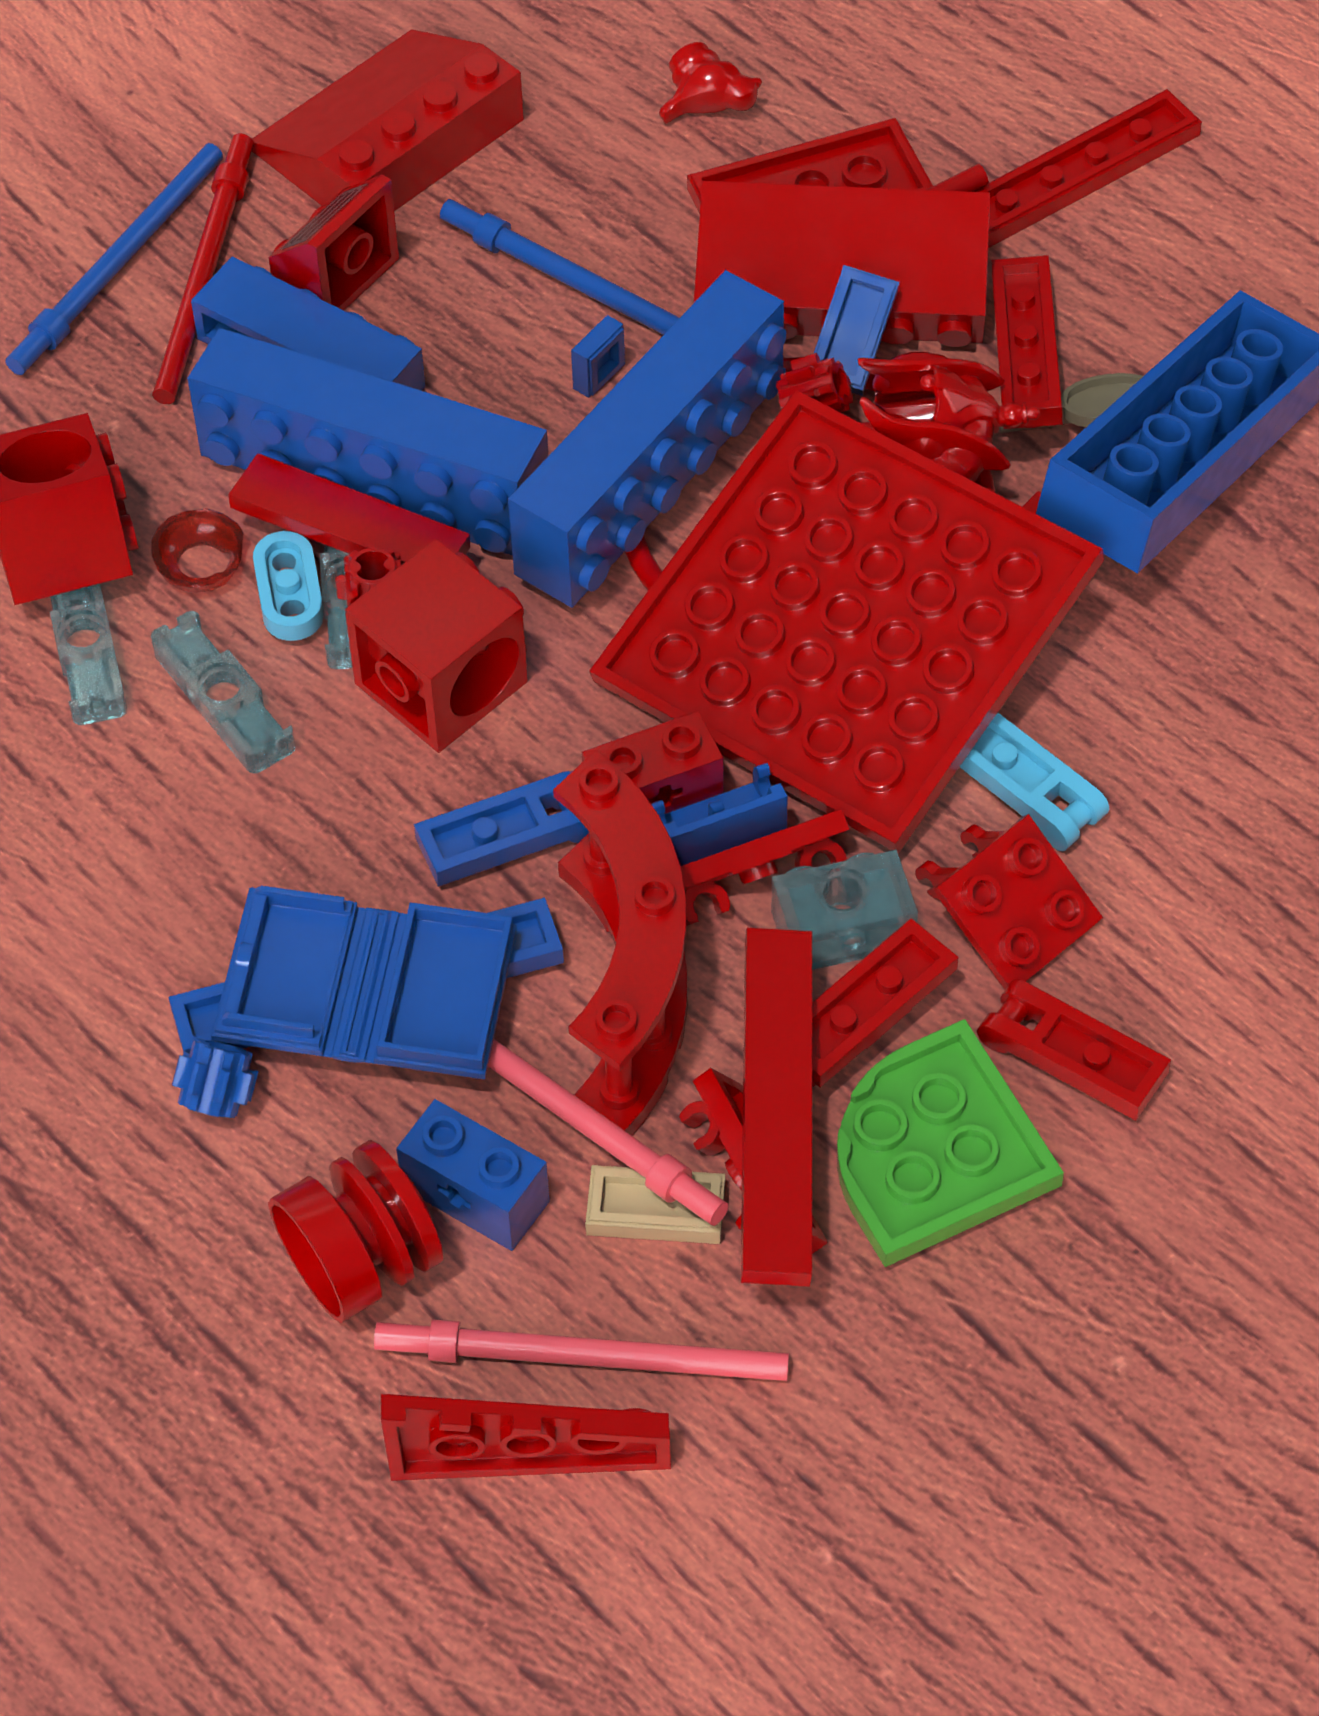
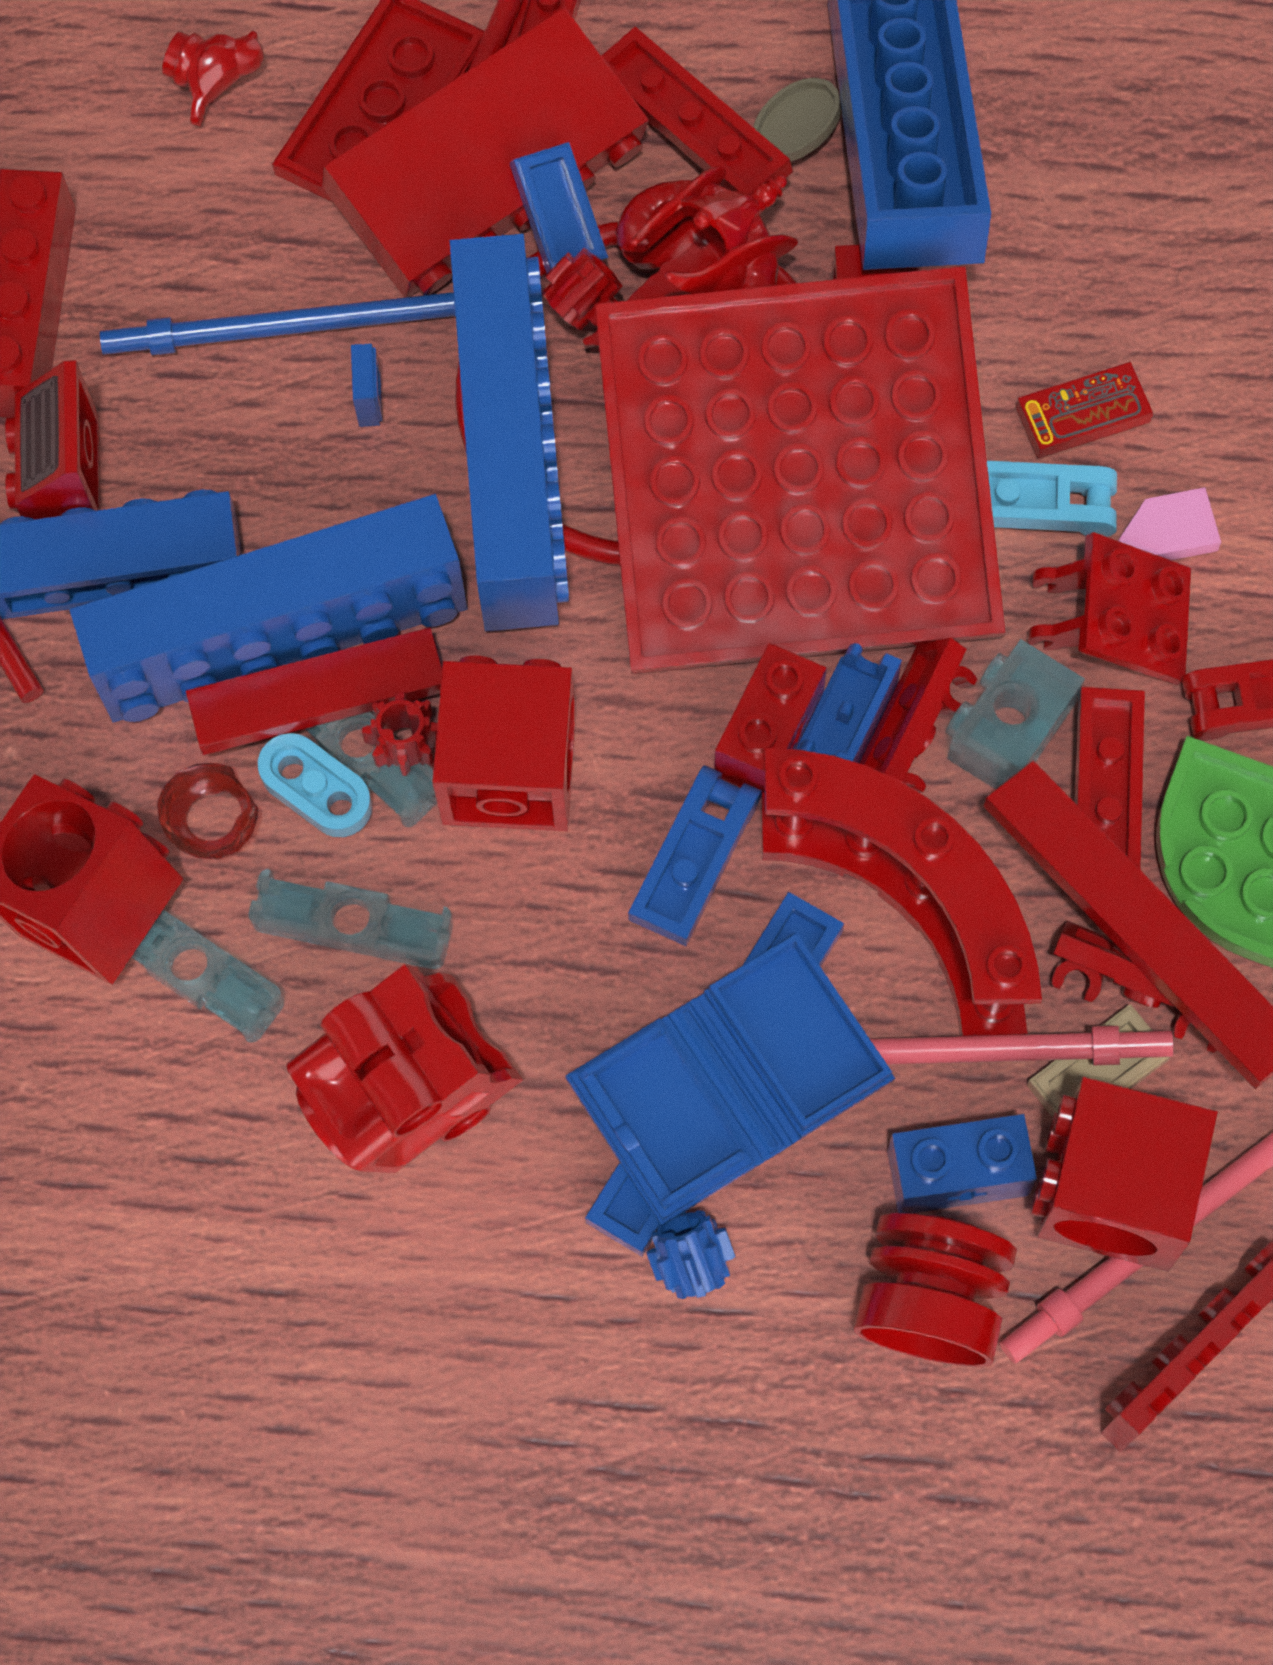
camera: 40 degrees left, 15 degrees up
(135, 788) = (399, 1072): none -> red piece
(573, 1254) = (1124, 1173): none -> red brick
(1117, 877) = (1174, 526): none -> bright pink tile
(1132, 749) = (1084, 410): none -> red tile

